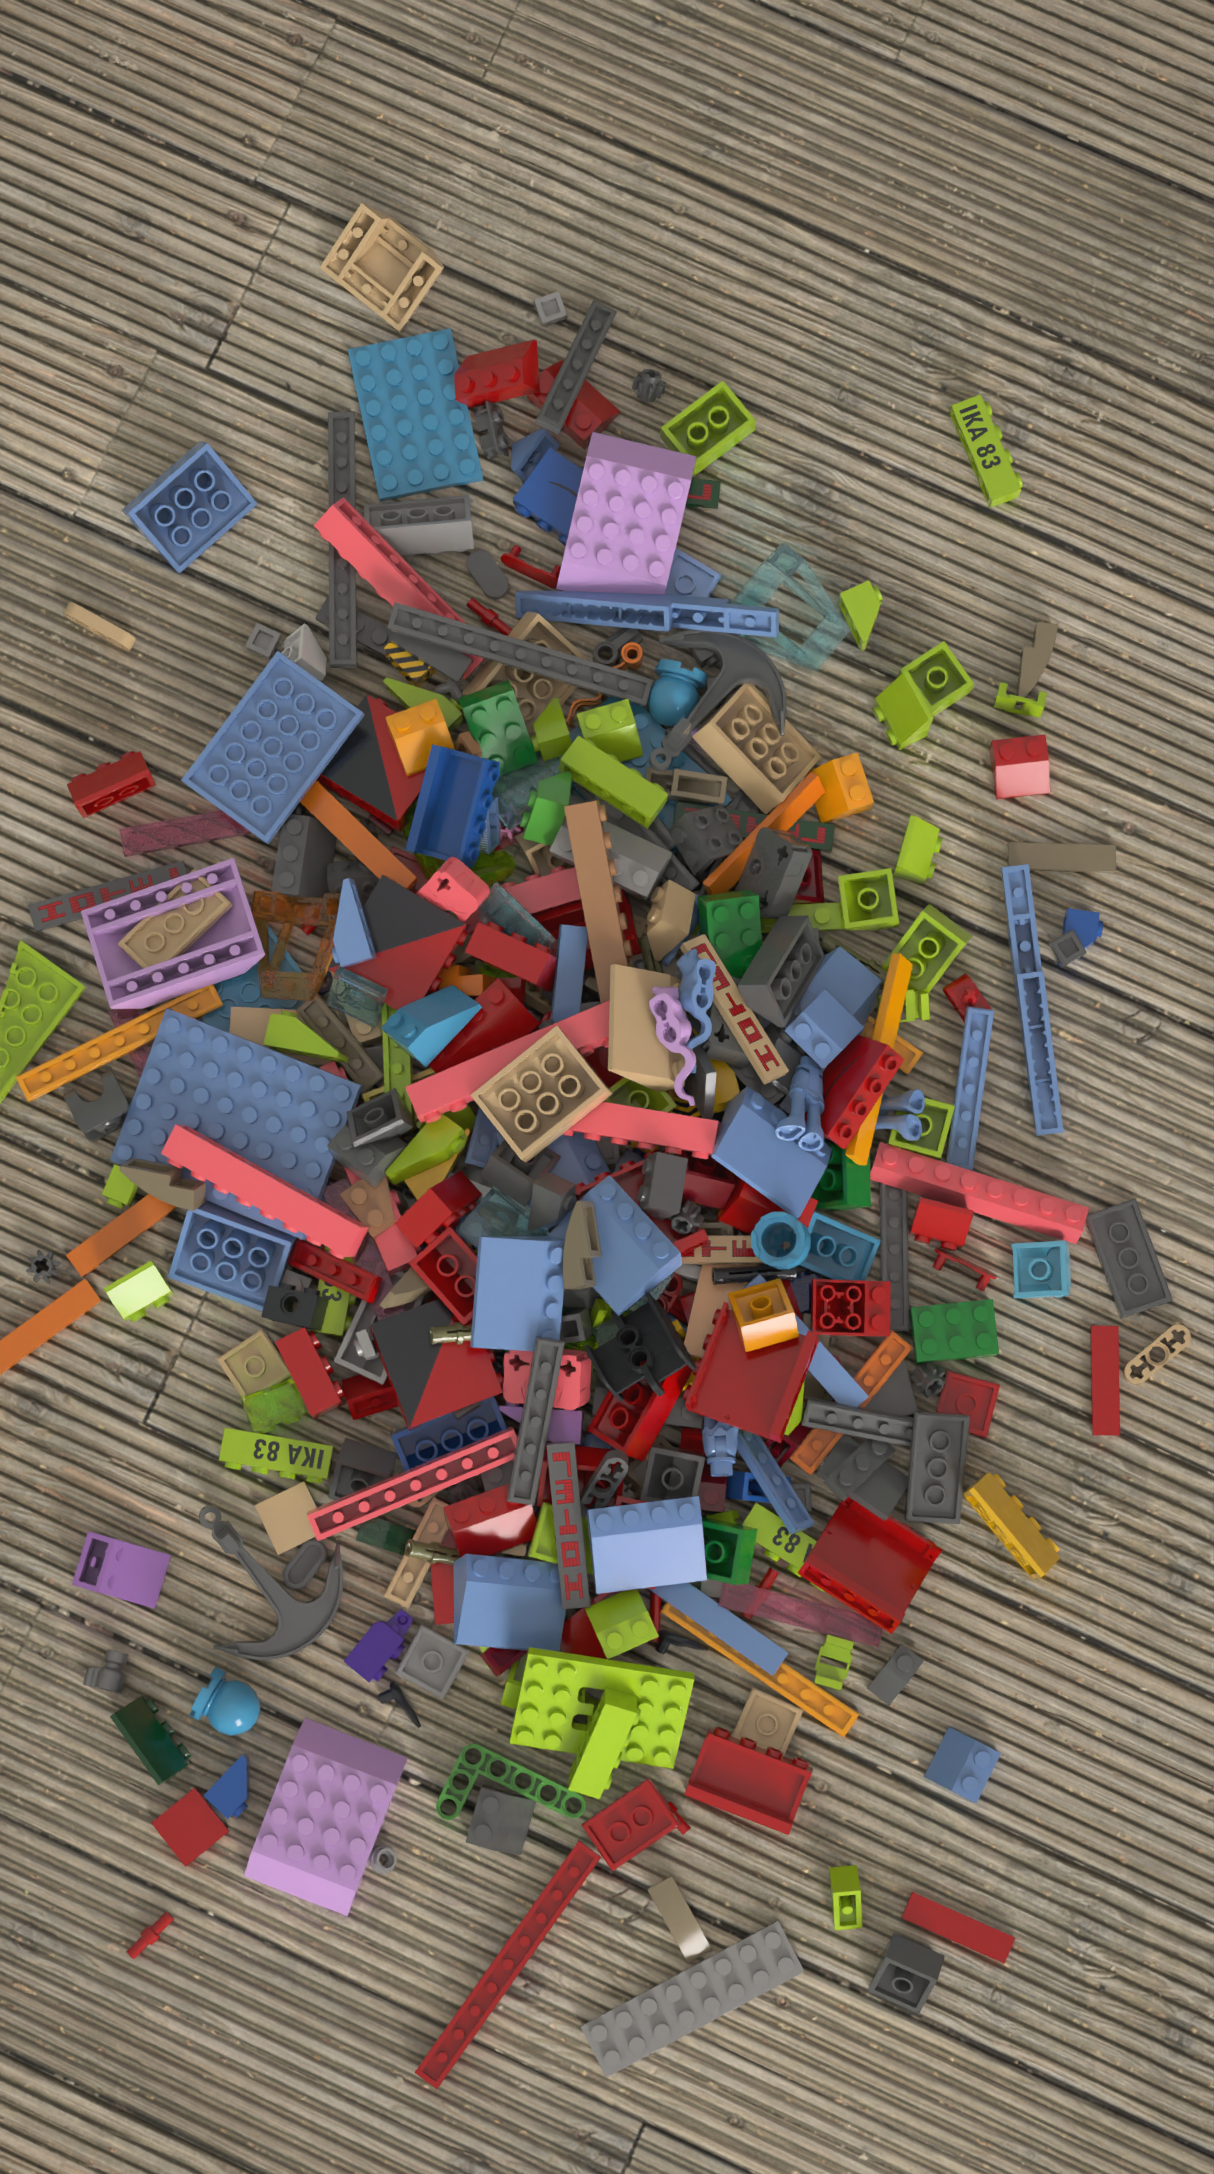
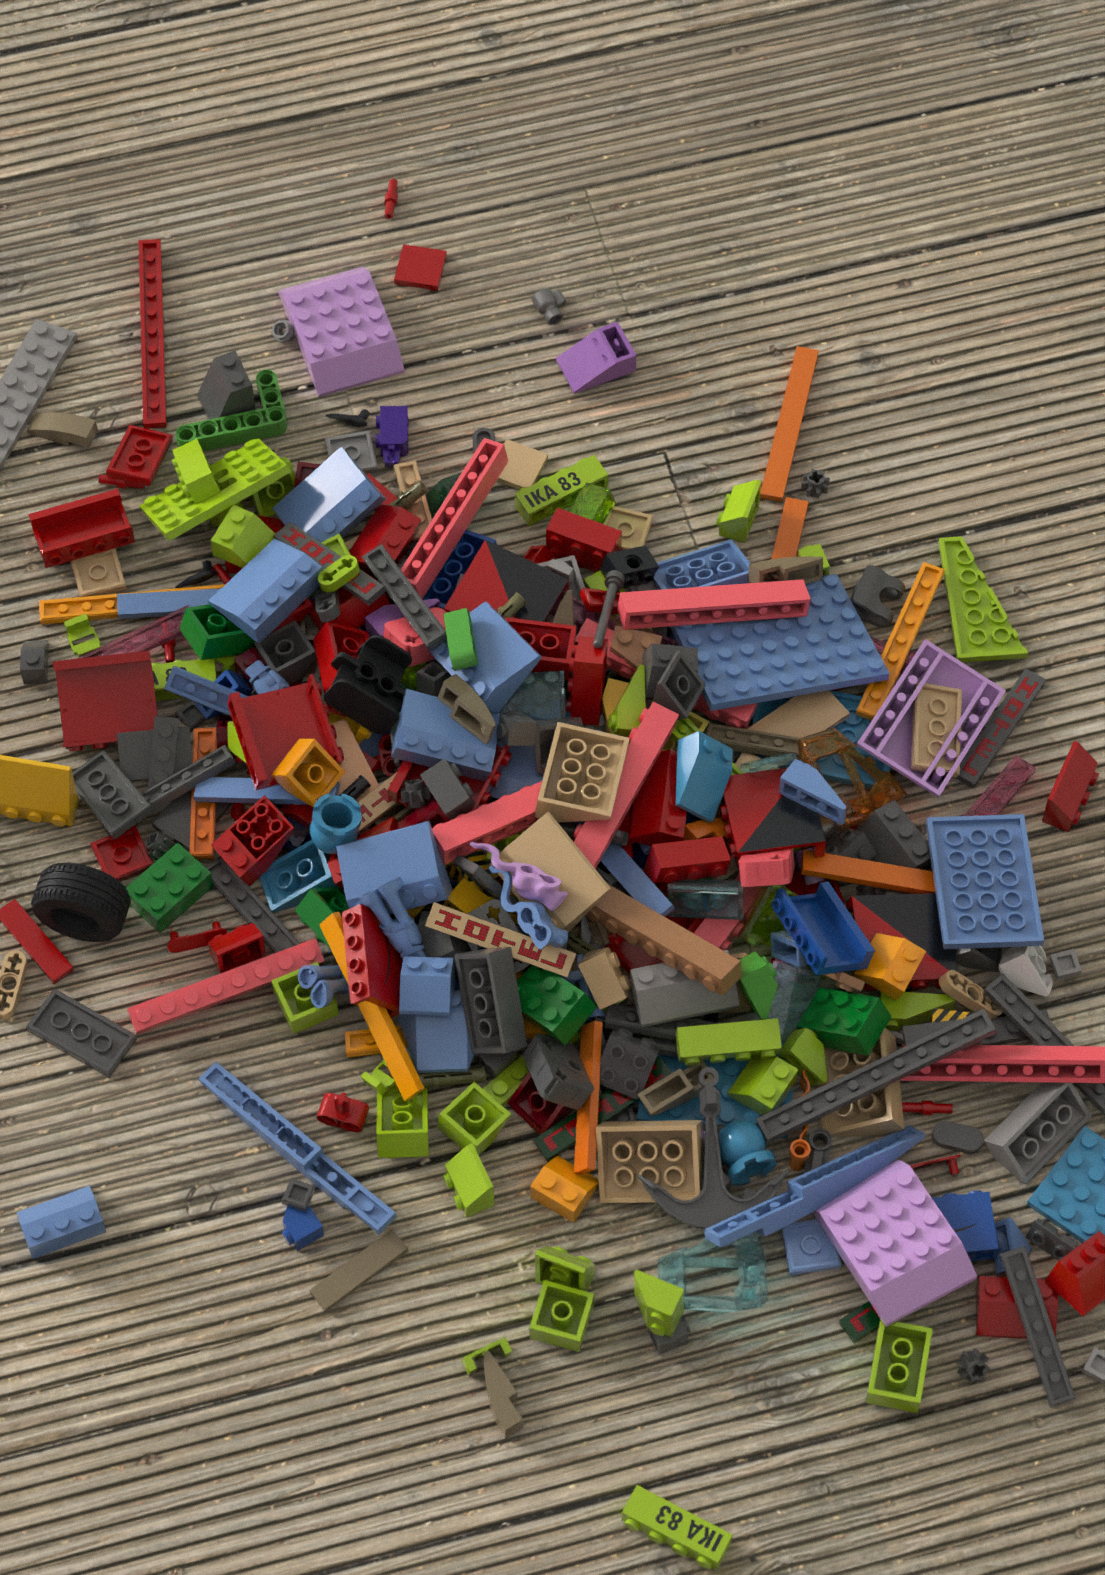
camera: 140 degrees right, 20 degrees down
(151, 1739) = (488, 283): dark green slope -> none
(229, 1705) = (456, 334): dark azure tile -> none
(231, 1789) = (413, 299): blue slope -> none
(293, 1036) = (780, 717): lime slope -> none
(298, 1620) = (458, 411): dark grey piece -> none
(328, 1292) = (614, 582): none -> dark grey piece
(360, 1467) = (498, 518): dark grey slope -> none
(378, 676) = (957, 987): none -> tan beam
(533, 1317) = (460, 639): none -> bright green beam
(575, 1502) = (338, 573): none -> lime beam
(969, 1087) = (291, 1051): medium blue tile -> none
(1020, 766) = (446, 1309): slope -> none
(1041, 1269) = (137, 973): medium azure slope -> none
(1050, 1361) = (81, 902): none -> black tyre

